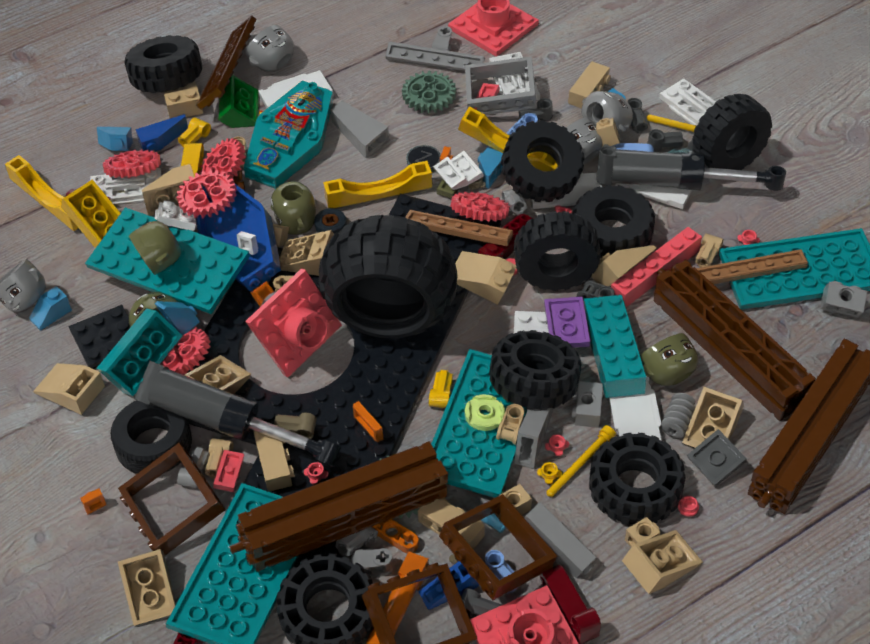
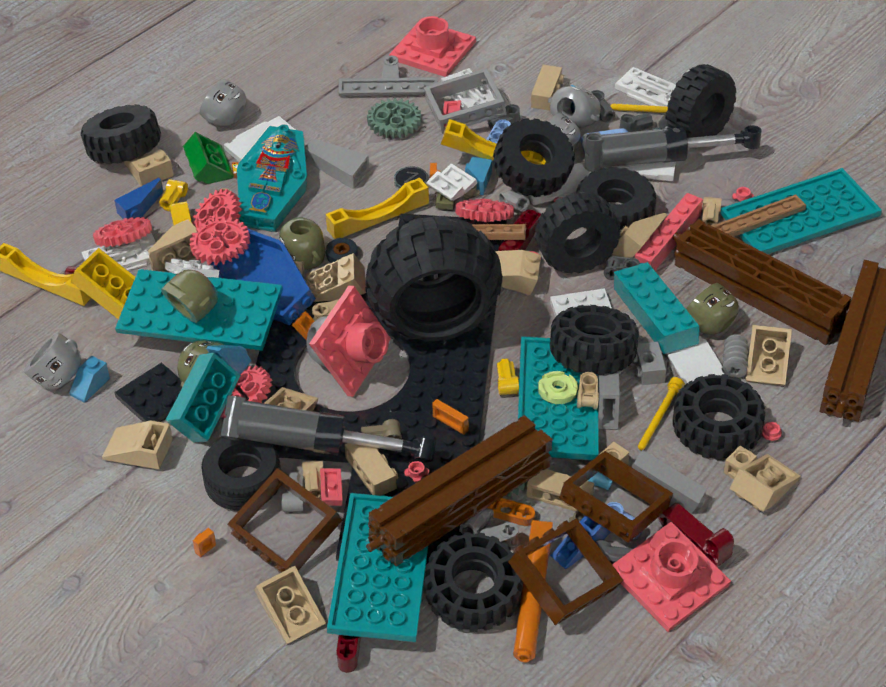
camera: 15 degrees left, 5 degrees down
(115, 138) = (93, 212): dark azure slope -> none
(226, 63) = (185, 123): reddish brown plate -> none
(247, 242) = (276, 276): white plate -> none
(549, 467) = (634, 428): yellow plate -> none
(557, 440) = (632, 404): coral plate -> none
(567, 320) = (605, 290): medium lavender plate -> none
(608, 131) = (584, 122): tan brick -> none
(717, 458) = (783, 385): dark grey plate -> none
(833, 302) = (839, 234): light grey brick -> none

